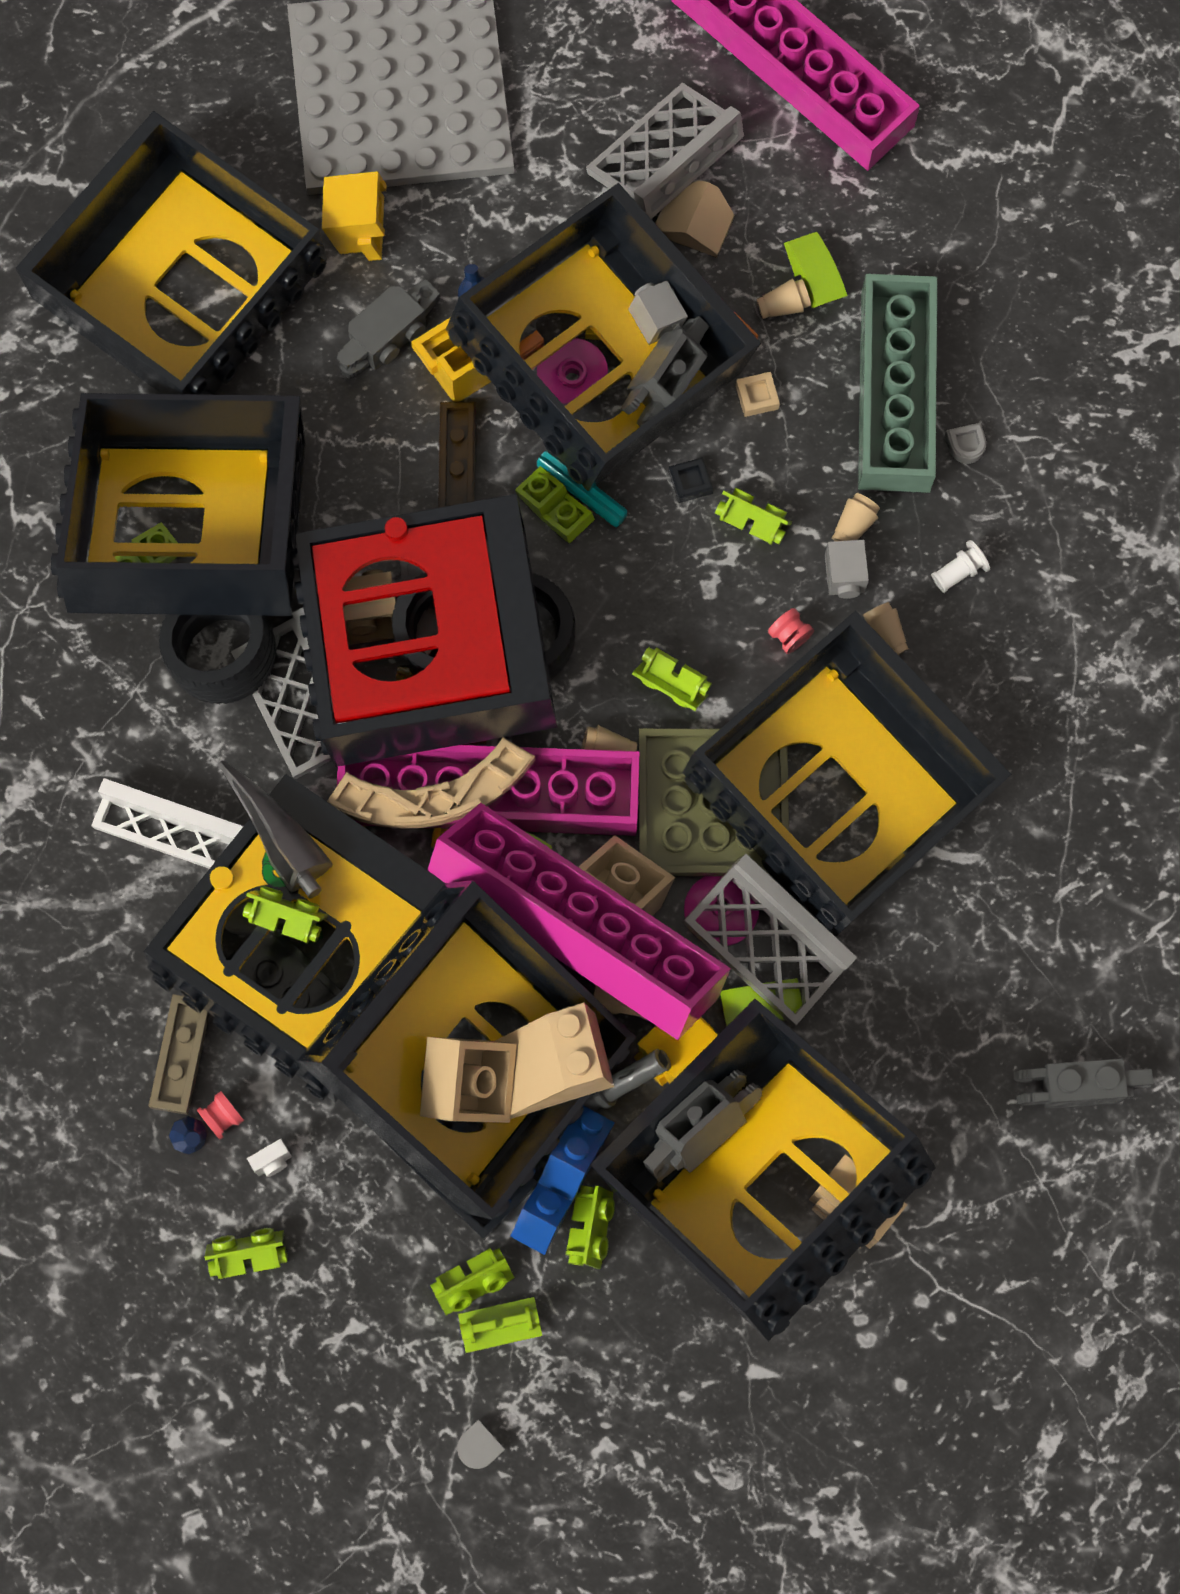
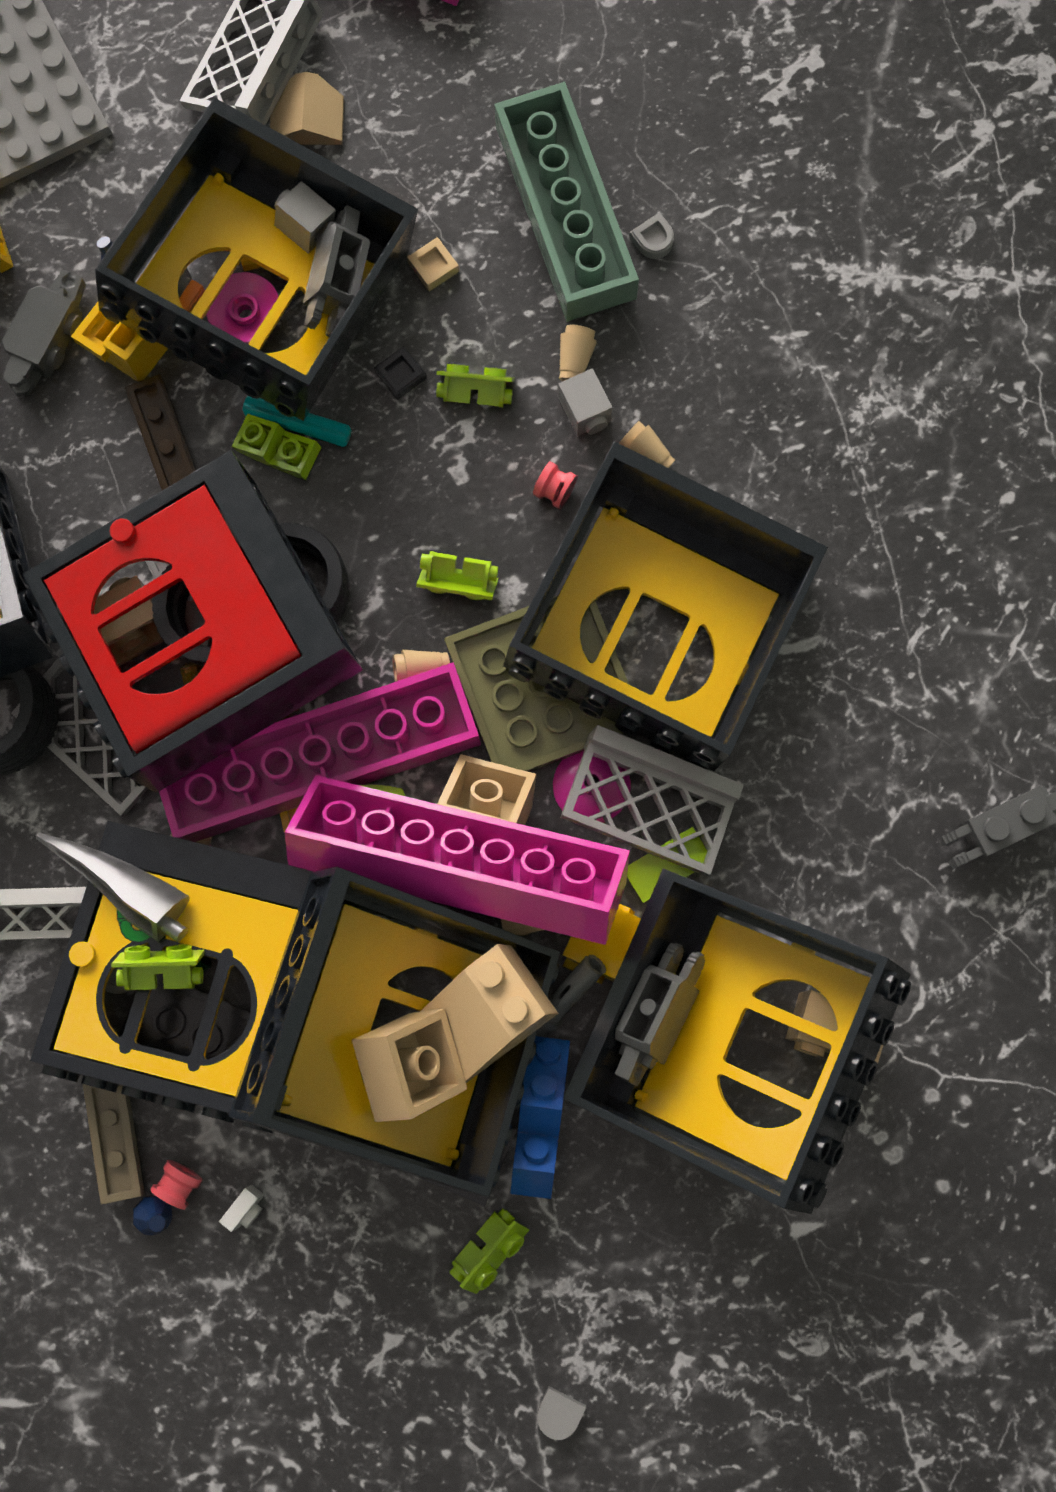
camera: 15 degrees left, 5 degrees up
(231, 1253) = (237, 1320): lime hinge -> none
(434, 803) = (270, 792): tan tile -> none
(500, 1325) = (533, 1284): lime hinge -> none
(590, 1244) = (591, 1169): lime hinge -> none
(784, 300) = (424, 161): tan cone -> none
(817, 269) = (439, 114): lime slope -> none
(964, 565) = (696, 359): white pin -> none

